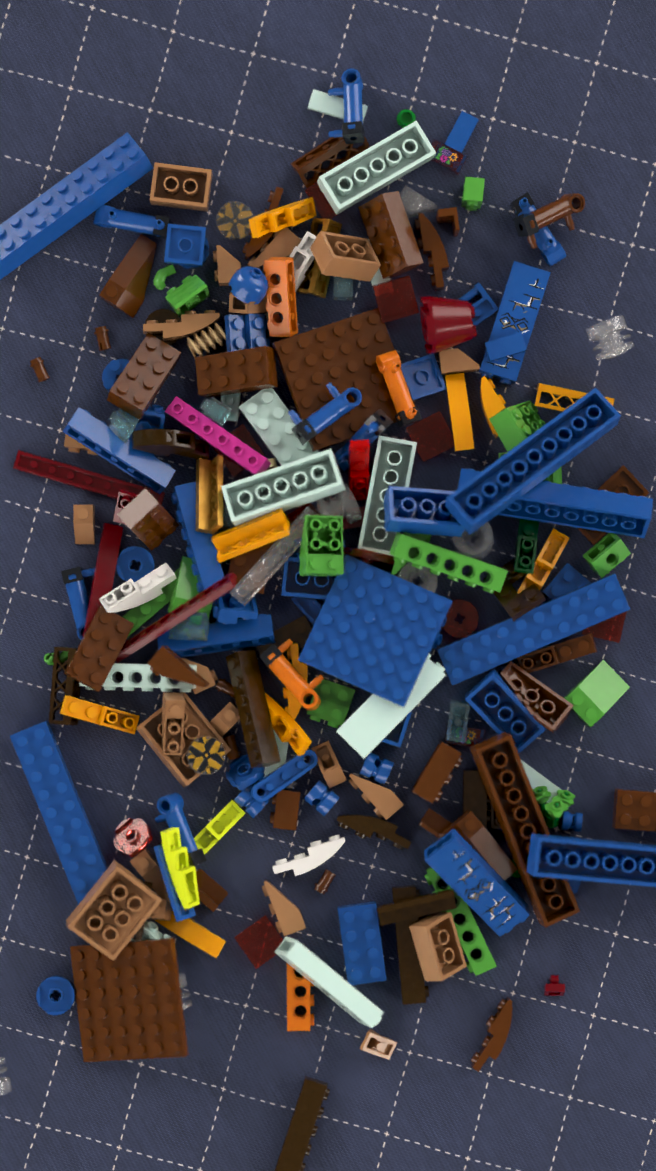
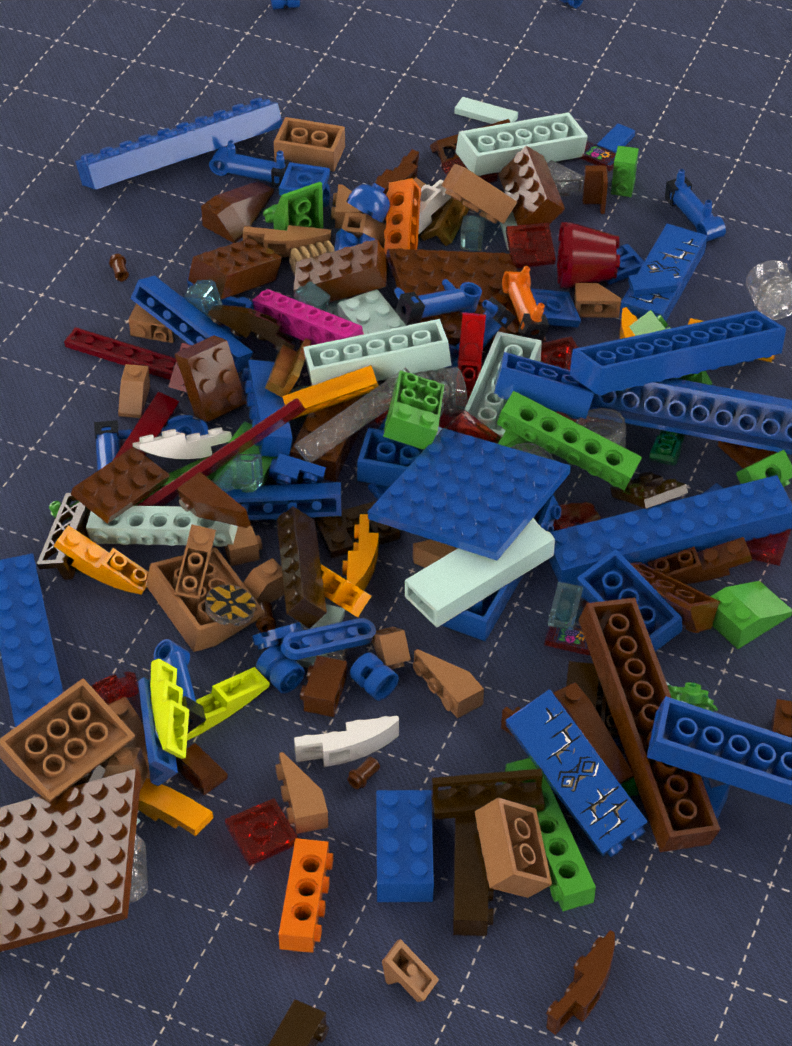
camera: 10 degrees right, 40 degrees down
(102, 337) = (196, 246): reddish brown pin -> none
(225, 687) = (266, 553): reddish brown pin -> none
(233, 220) = (359, 175): clear tile -> none
(282, 217) = (411, 165): light orange slope -> none
(290, 677) = (338, 523): orange piece -> none
(329, 982) = (351, 866): light aqua brick -> none
(334, 703) = (389, 587): bright green plate -> none
(352, 128) = (500, 103): blue piece -> none
(366, 825) = (433, 713): dark brown slope -> none
(376, 768) = (453, 651): blue wheel -> none
(431, 244) = (576, 207): reddish brown slope -> none
(437, 772) = (531, 658): reddish brown brick -> none
(459, 411) = (592, 328): light orange slope -> none
(530, 223) = (685, 188): reddish brown piece -> none
(545, 560) = (695, 473): light orange slope -> none
(554, 987) = (678, 933): dark red tile -> none

